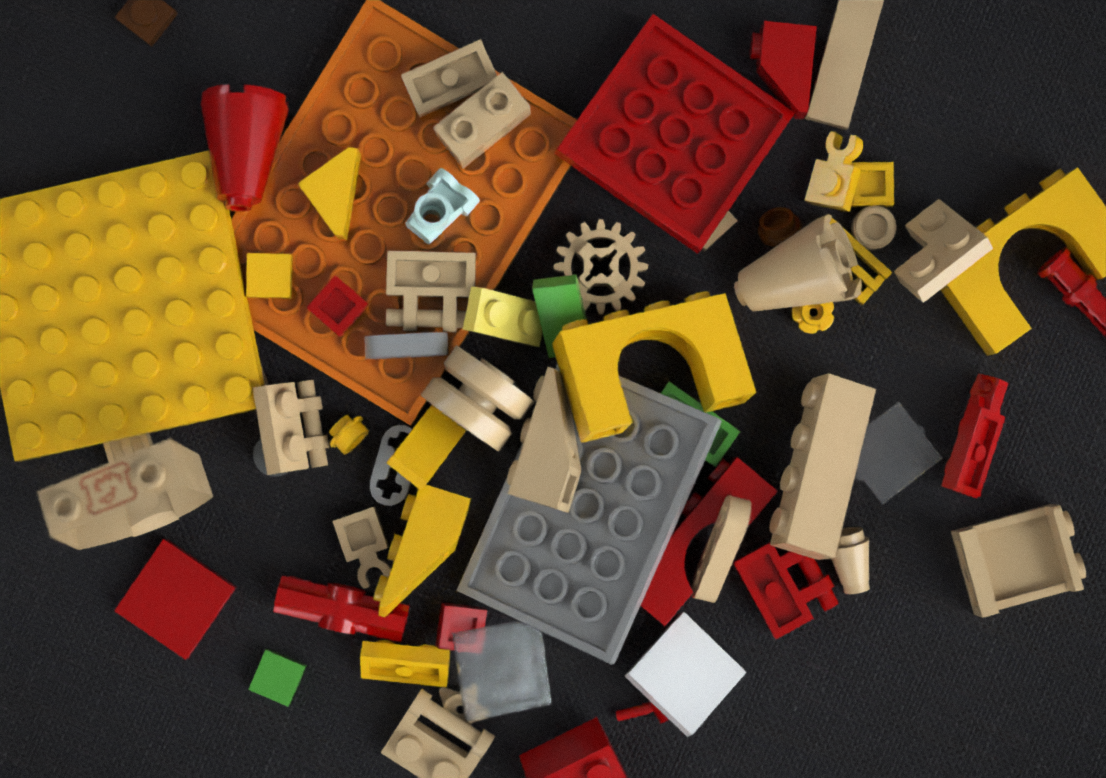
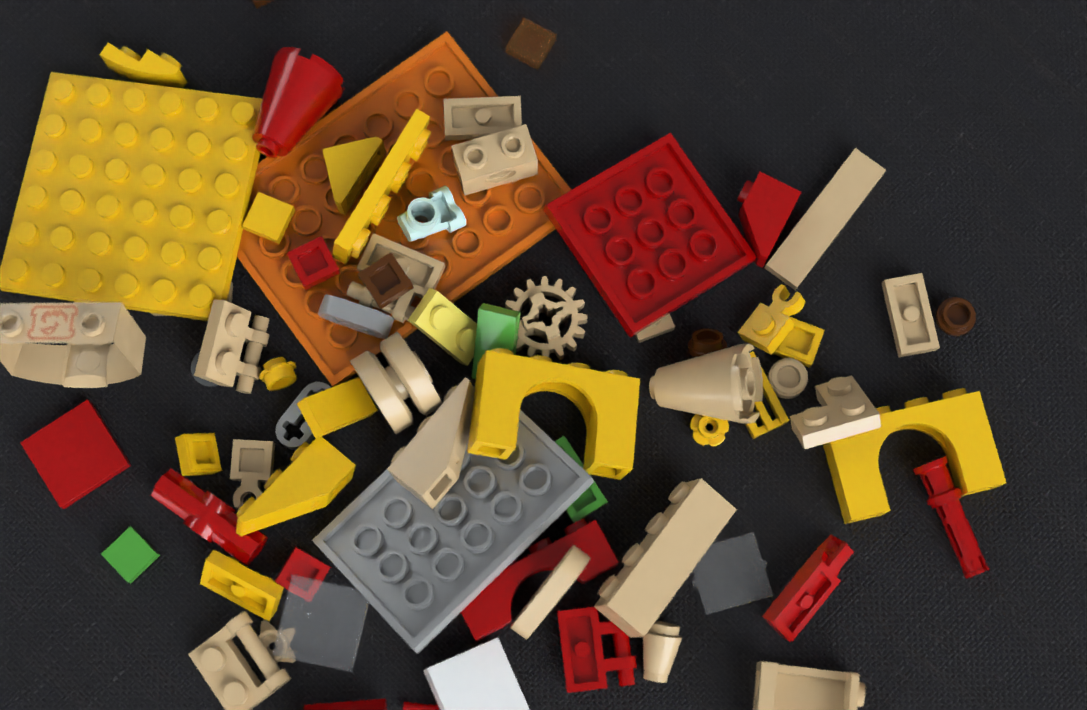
camera: 20 degrees right, 10 degrees down
(72, 161) = (149, 69): none -> yellow slope
(302, 550) = (198, 454): none -> yellow tile
(382, 184) = (388, 178): none -> yellow plate
(424, 298) = (385, 280): none -> reddish brown plate
(976, 111) = (910, 315): none -> tan plate
(1023, 93) = (955, 316): none -> reddish brown plate

